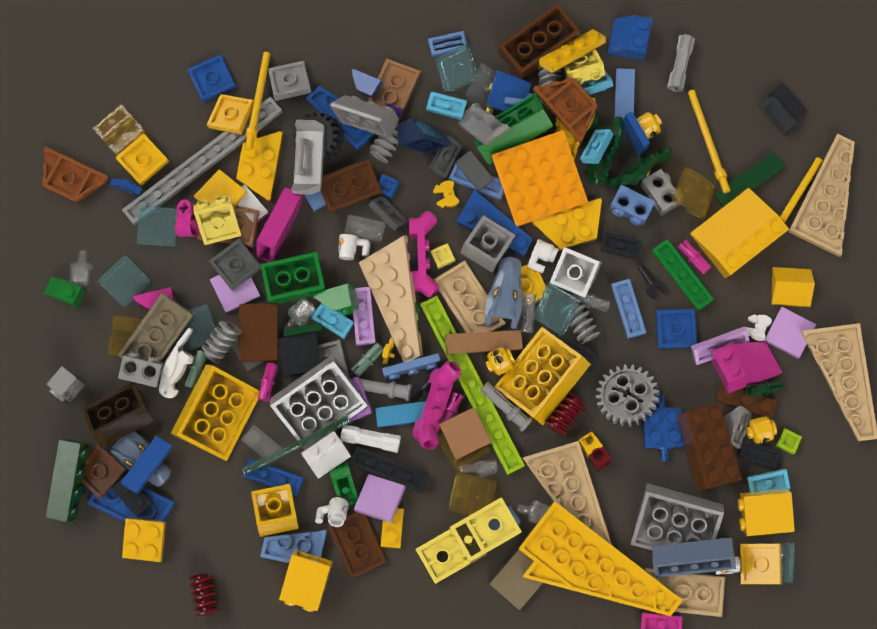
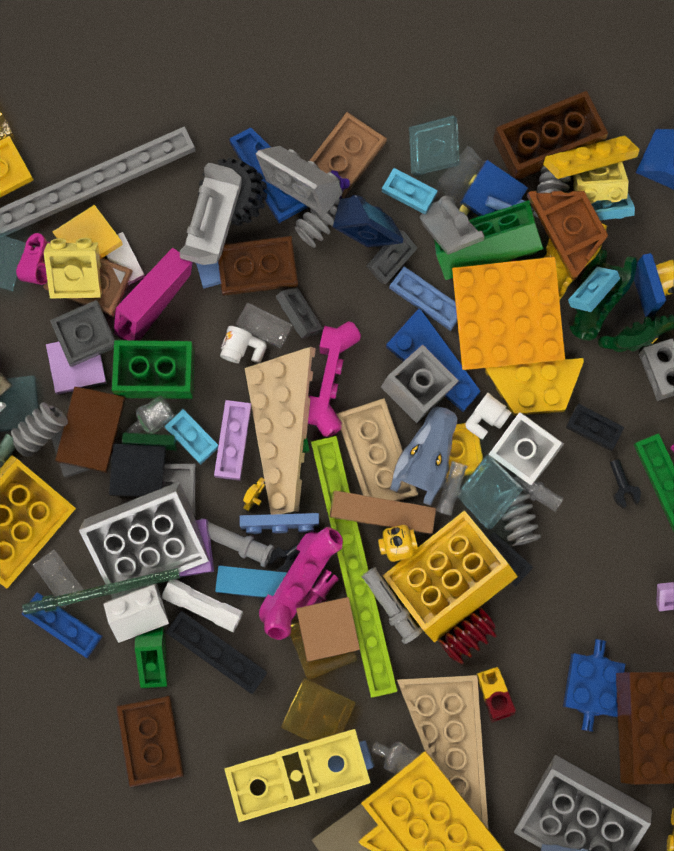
camera: 10 degrees right, 0 degrees up
(211, 78) = (115, 86): blue tile -> none
(230, 114) = (127, 137): yellow tile -> none
(251, 132) = (148, 165): yellow bar -> none
(259, 167) = (149, 210): yellow wing -> none
(267, 382) = (86, 497): dark pink axle -> none
(274, 510) = (51, 670): yellow slope -> none
(282, 547) = (67, 729): medium blue wing -> none
(289, 80) = (214, 112): light grey tile -> none
(305, 581) = (67, 776): yellow brick -> none
(336, 512) = (132, 692): white piece -> none
(339, 299) = (206, 410): slope -> none
(366, 84) = (312, 138): tile -> none
(367, 359) = (224, 499): sand green axle -> none
(379, 498) = (194, 688): lavender tile -> none
(388, 186) = (308, 277): blue tile -> none
(392, 531) = (201, 731): yellow plate -> none
(442, 256) = (357, 385): light yellow tile -> none
(447, 44) = (429, 114): medium blue tile -> none
(447, 189) = (384, 313): yellow piece -> none
(474, 171) = (425, 284): dark grey tile -> none
(485, 468) = (344, 680): clear piece -> none
(619, 410) = (572, 613): light grey gear -> none
(624, 92) = (646, 226): medium blue tile -> none
(628, 309) = (585, 514): medium blue plate -> none
(634, 201) = (626, 373): medium blue brick -> none
(676, 328) = (643, 555): blue tile -> none

